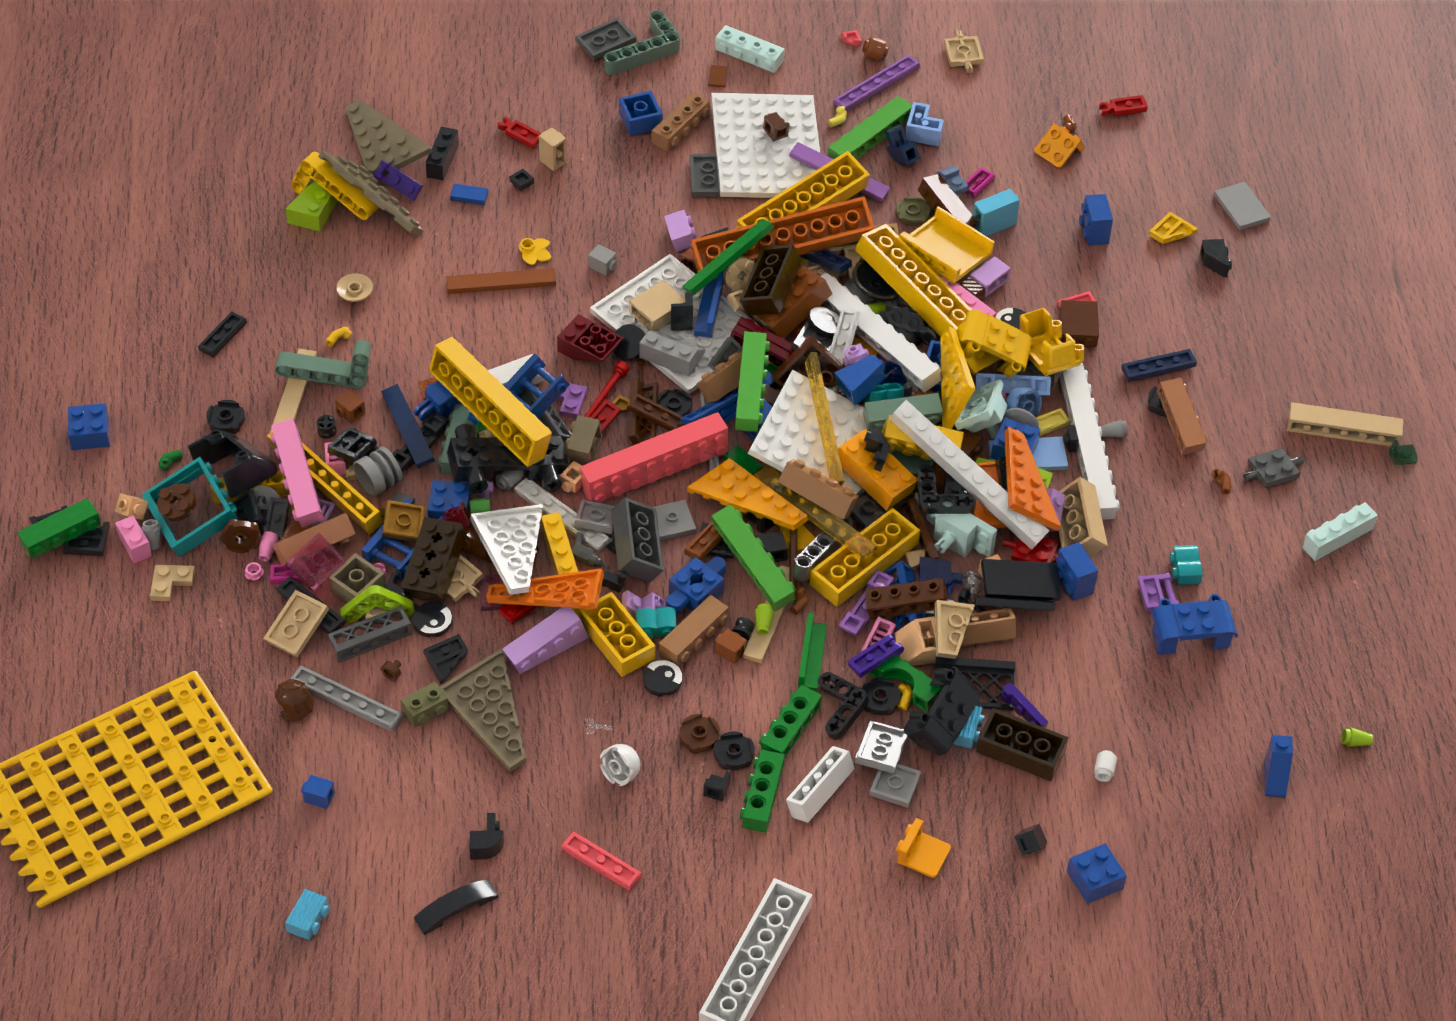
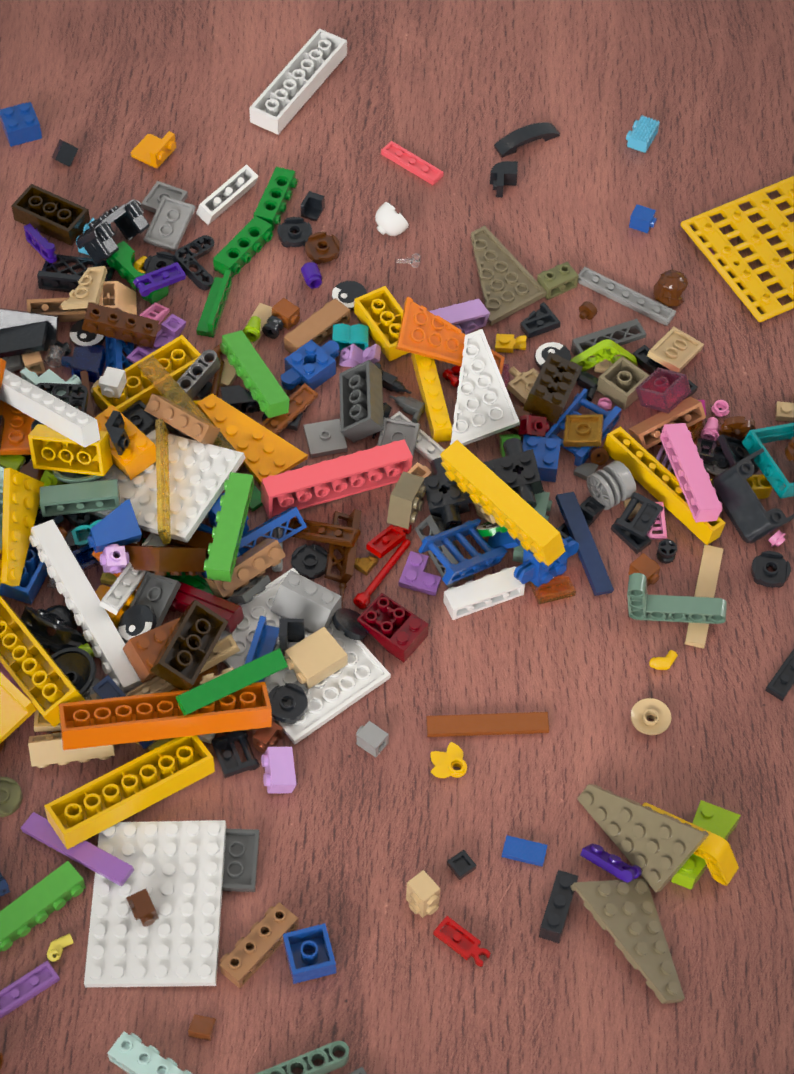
camera: 175 degrees left, 5 degrees up
(482, 633) = (506, 343): none -> yellow plate
(682, 265) = (292, 713): none -> black plate
(707, 694) = (311, 275): none -> dark purple brick
(898, 525) = (112, 382): none -> white brick

